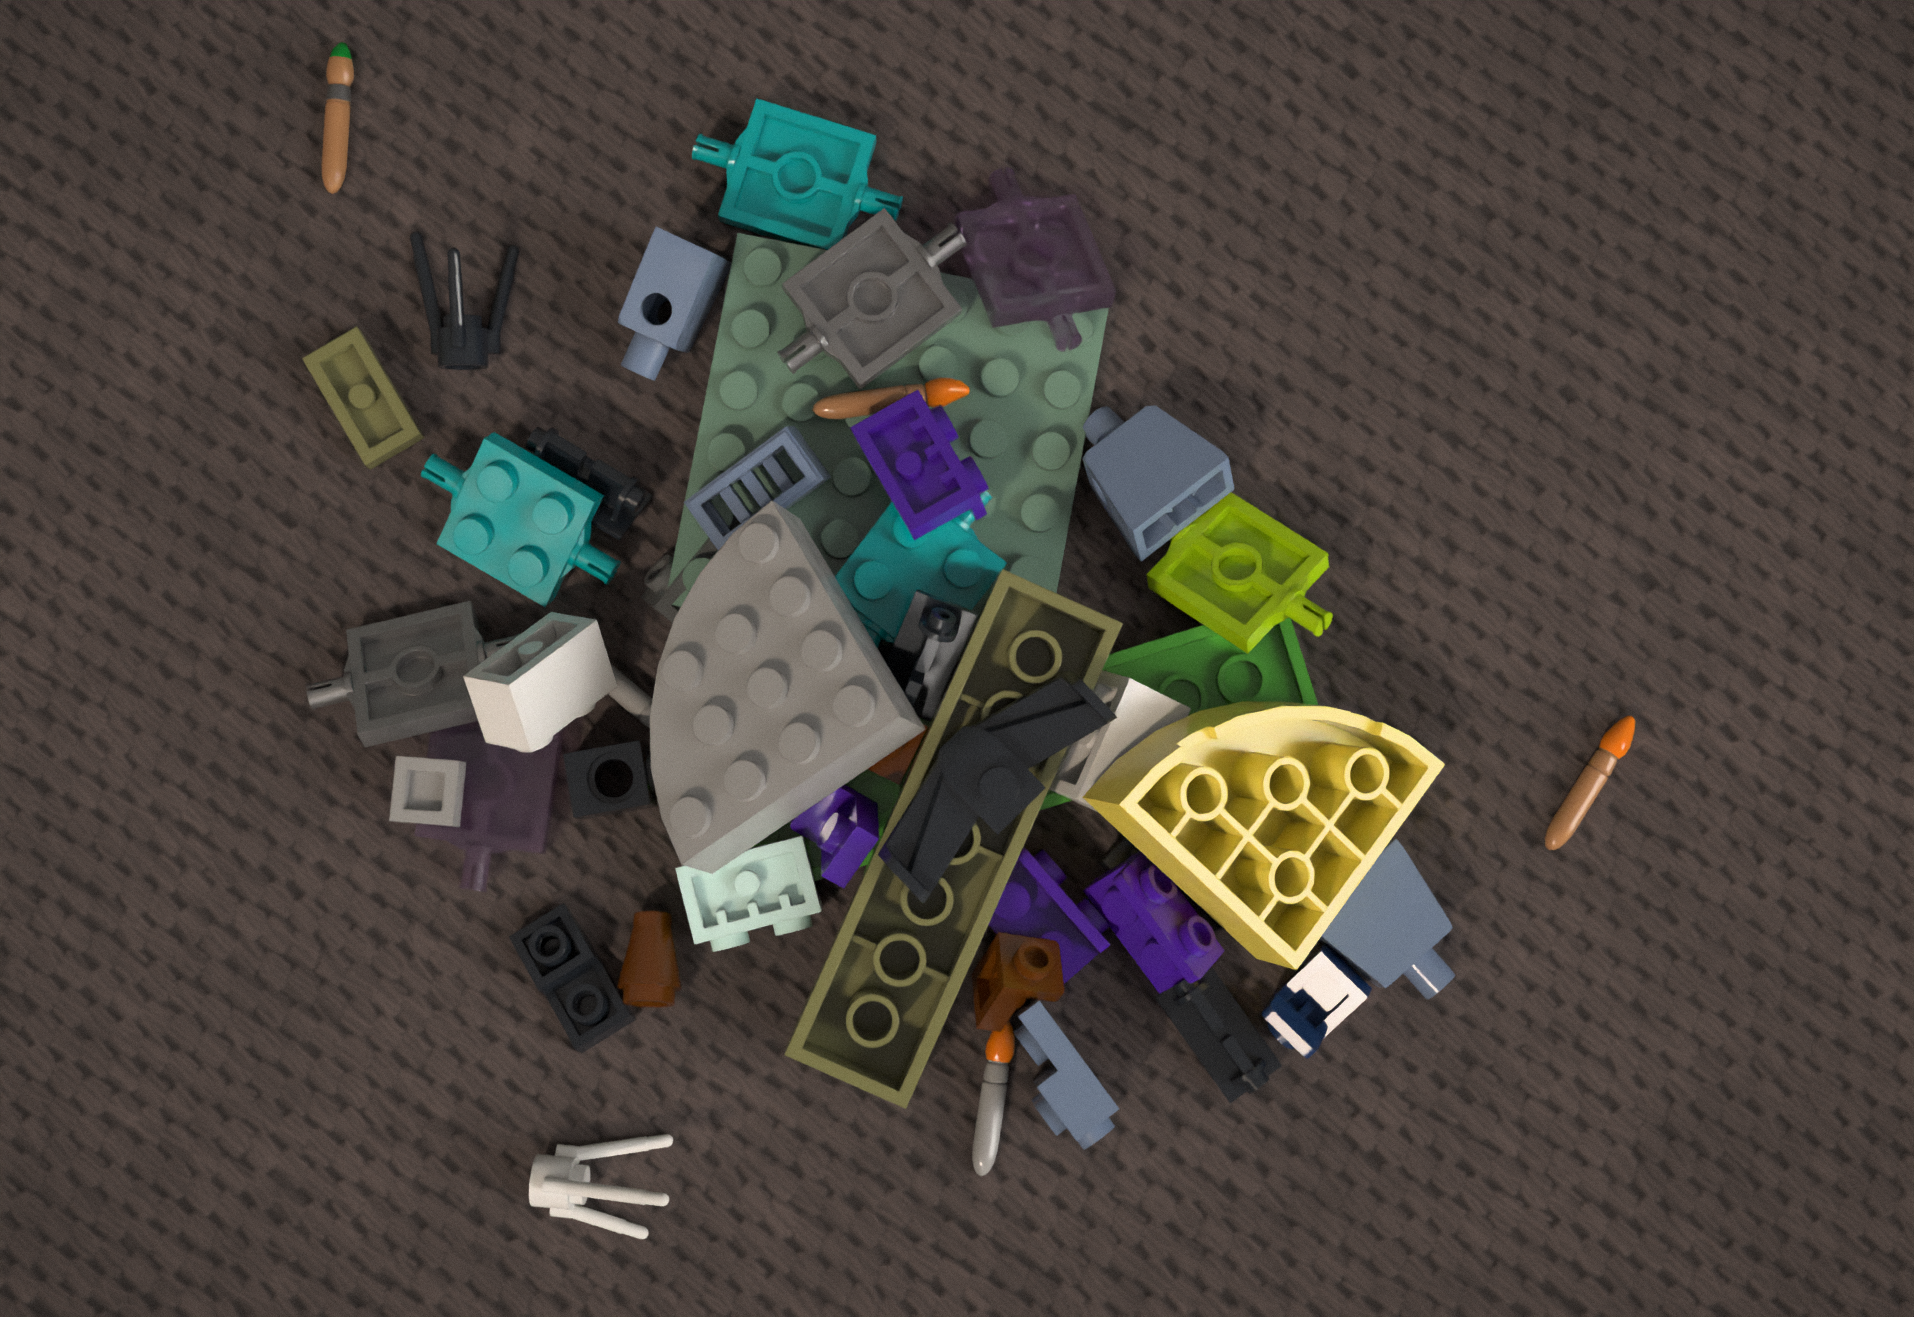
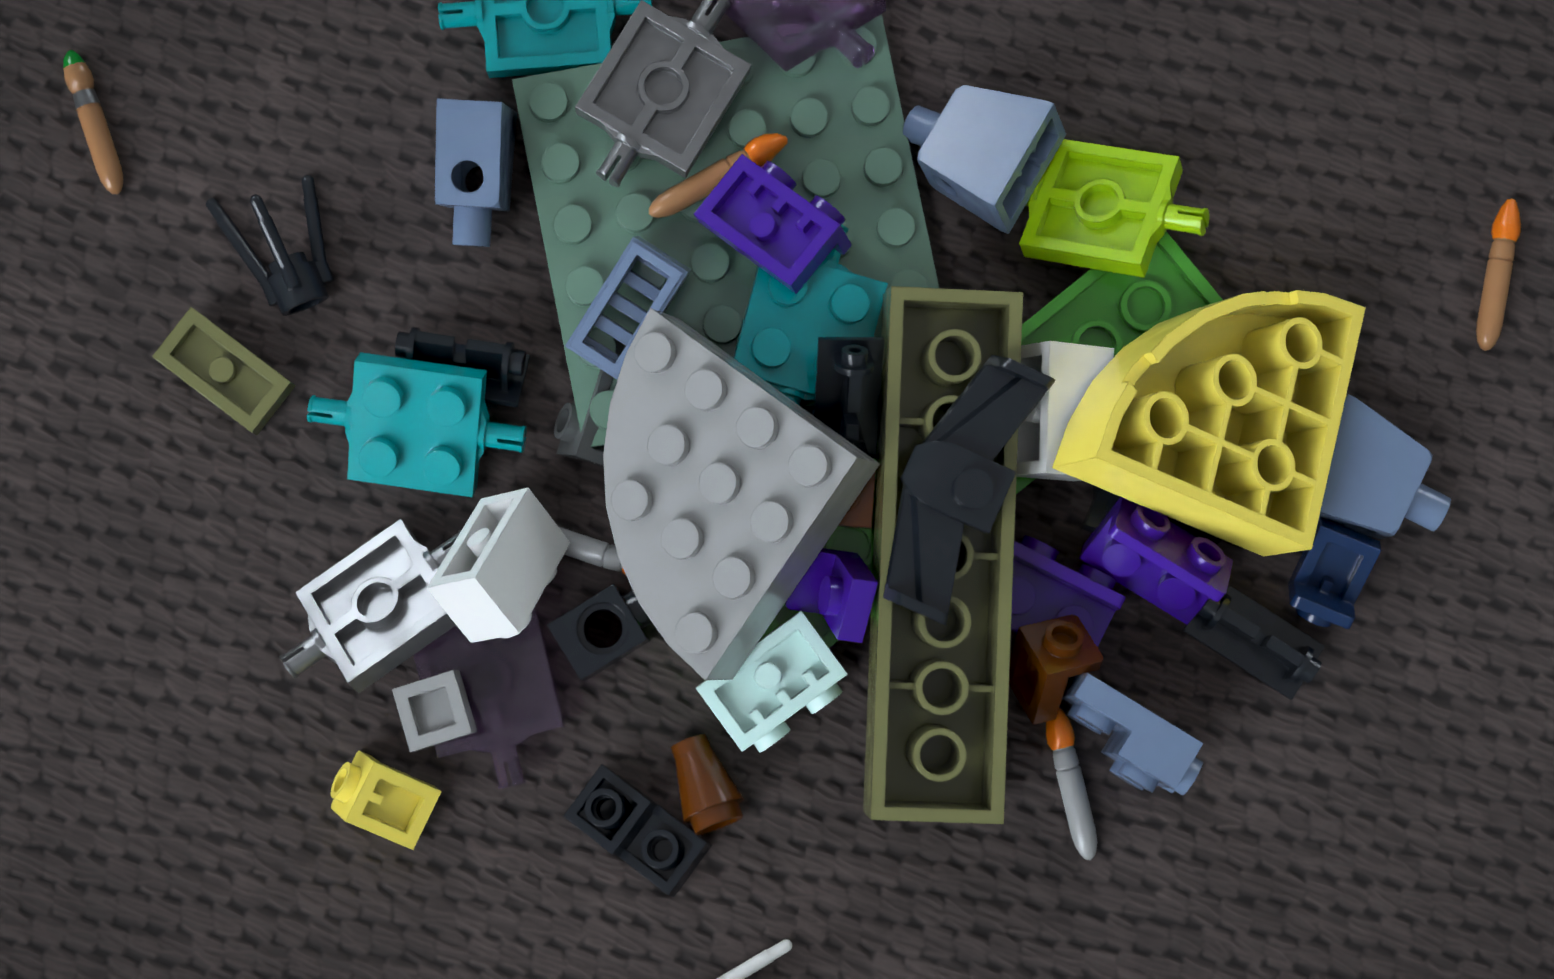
camera: 20 degrees left, 0 degrees up
(349, 854) = (383, 799): none -> light yellow bracket

